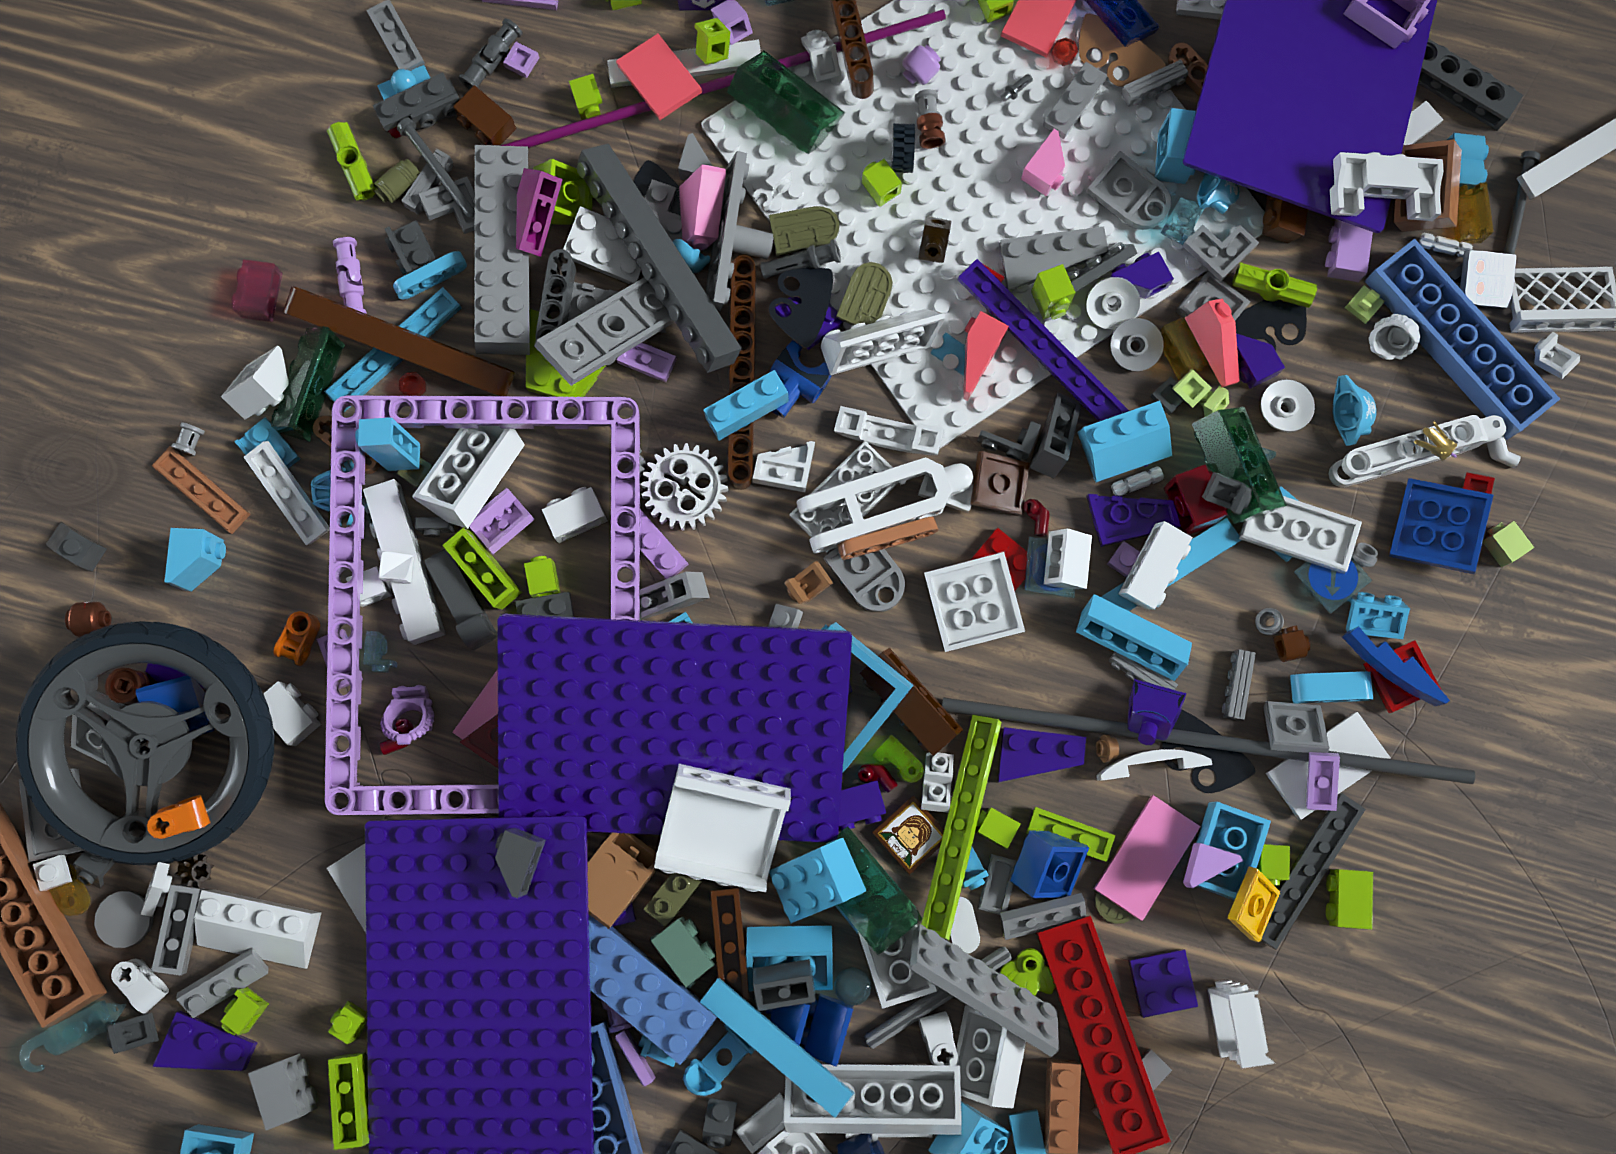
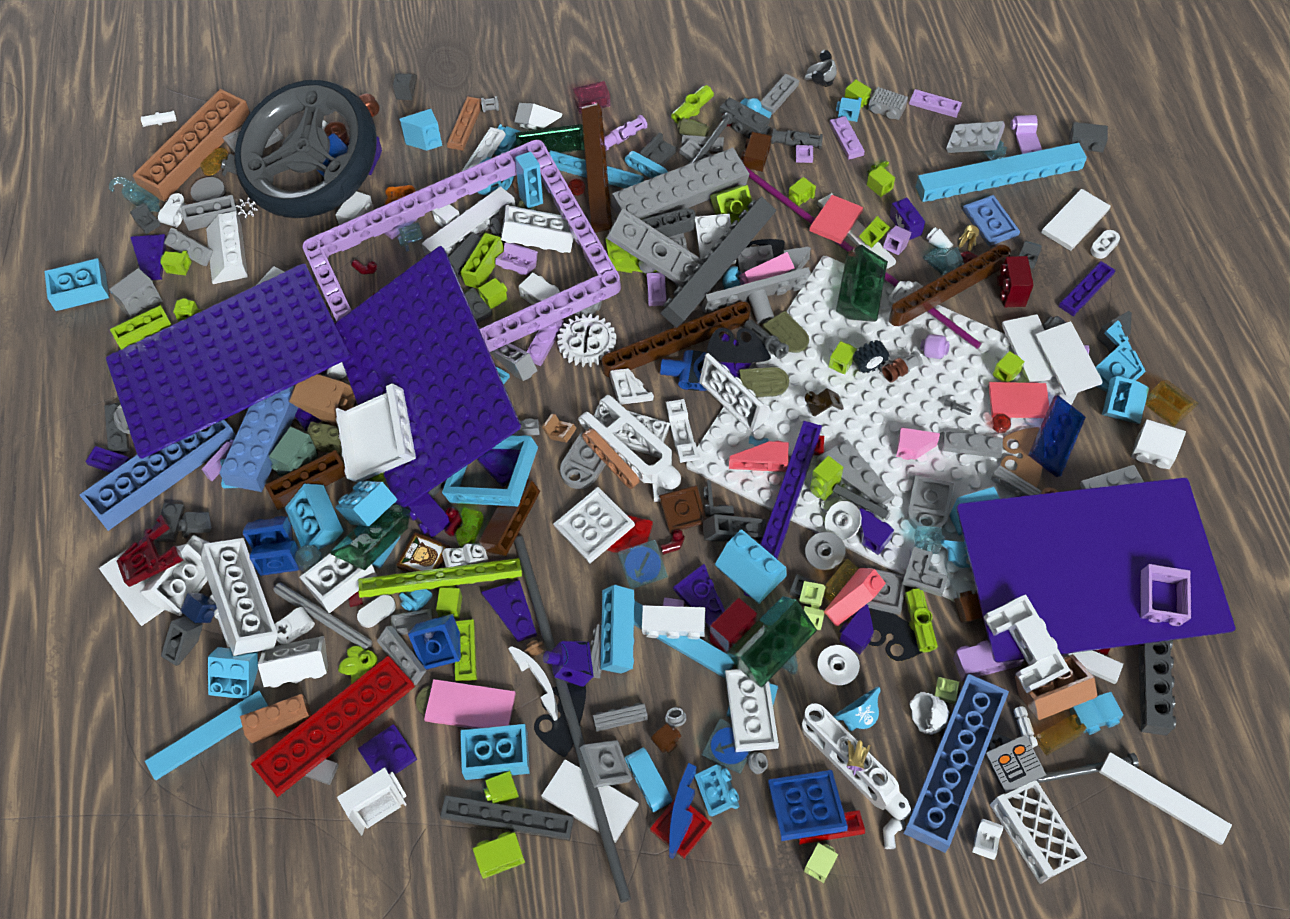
camera: 65 degrees right, 20 degrees down
(52, 873) = (220, 148): white plate -> none
(157, 889) = (229, 189): white plate -> none
(182, 817) = (268, 175): orange piece -> none
(396, 567) = (461, 217): white slope -> none
(404, 700) = (389, 264): lavender piece -> none
(518, 859) = (308, 332): dark grey slope -> none
(535, 209) = (708, 188): magenta slope -> none
(706, 1076) = (222, 504): medium azure piece -> none
(746, 405) = (651, 341): medium azure brick -> none
(775, 184) = (805, 303): white plate -> none
(777, 1047) = (248, 520): medium azure tile -> none
(783, 985) = (291, 511): dark grey brick -> none
(984, 989) = (333, 628): light grey plate -> none
(1067, 559) = (651, 567): white brick -> none
(1137, 481) = (728, 591): white axle -> none
(1206, 863) = (475, 728): lavender slope -> none
(1227, 493) = (741, 629): dark grey bracket -> none
(1253, 904) = (462, 778): yellow tile -> none
(1322, 781) = (572, 791): lavender plate -> none

